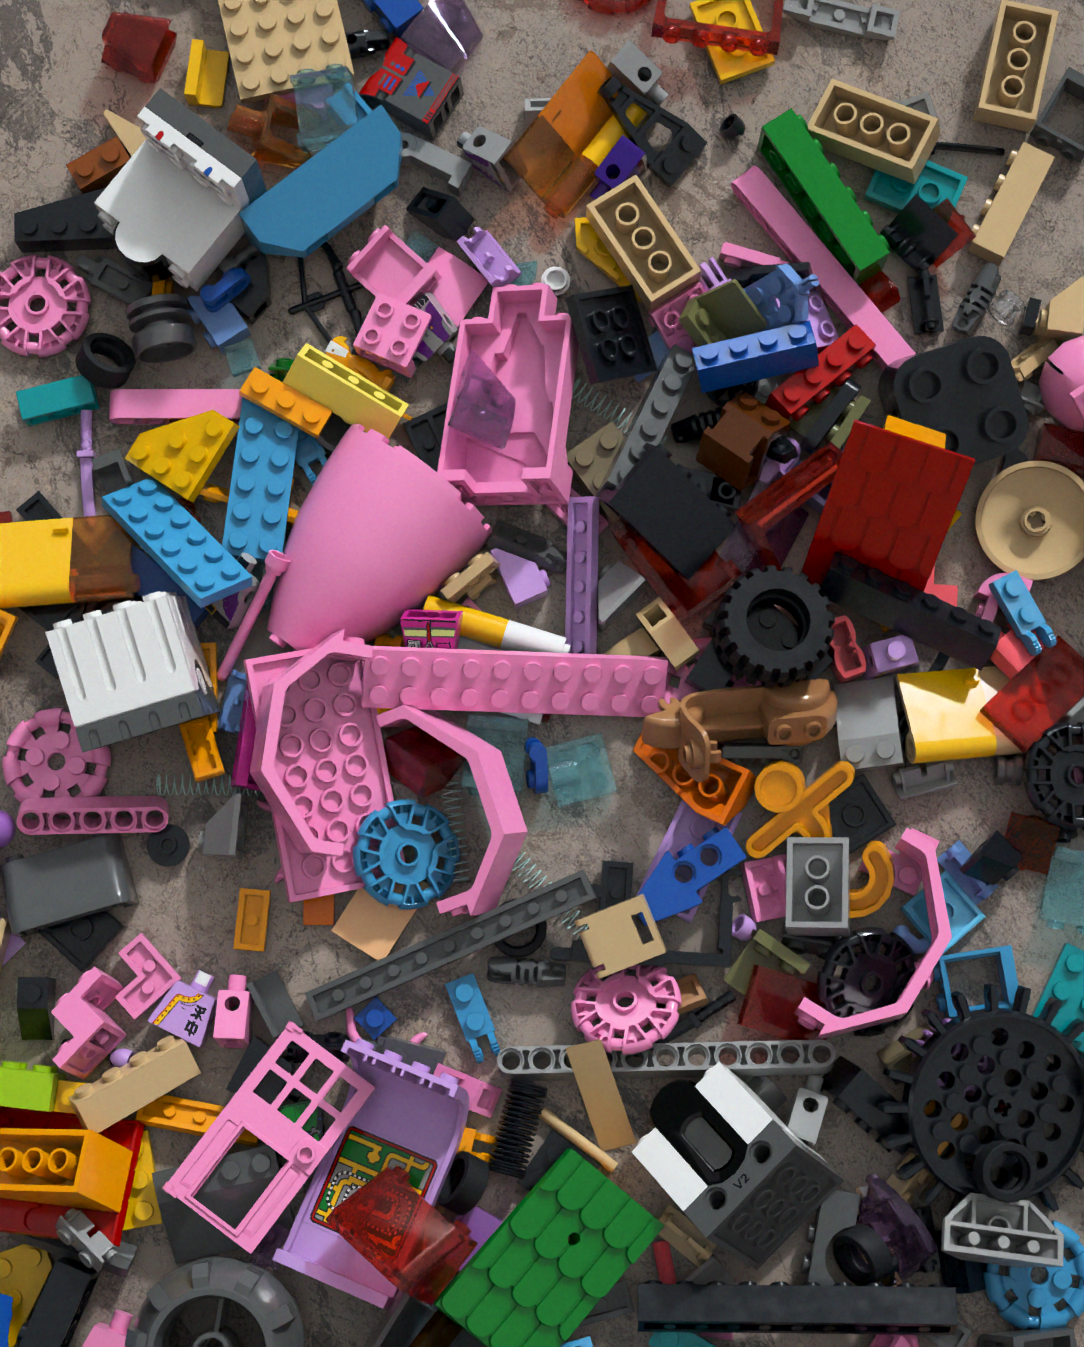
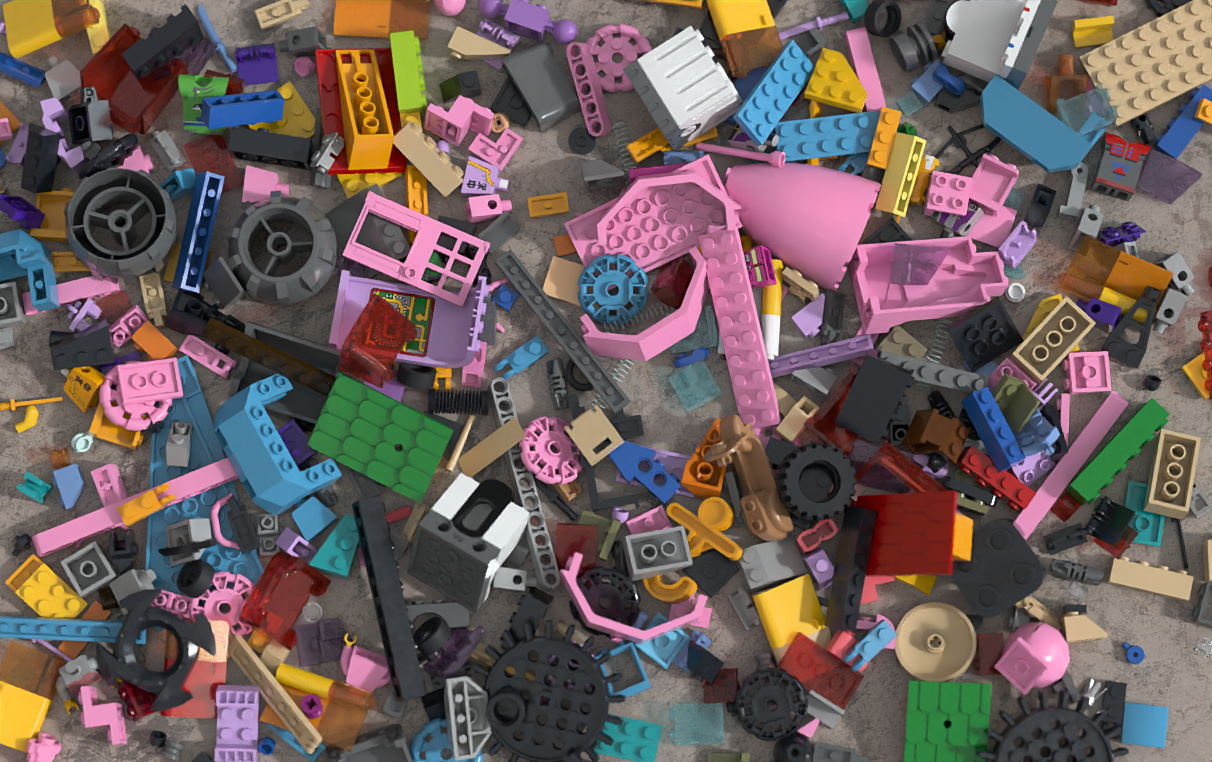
camera: 75 degrees right, 0 degrees up
(107, 960) = (500, 122): none -> light nougat tile
(510, 107) = (1127, 230): none -> dark purple hinge
(575, 46) = (1182, 274): none -> light grey torso
(699, 210) = (1086, 372): none -> bright pink plate

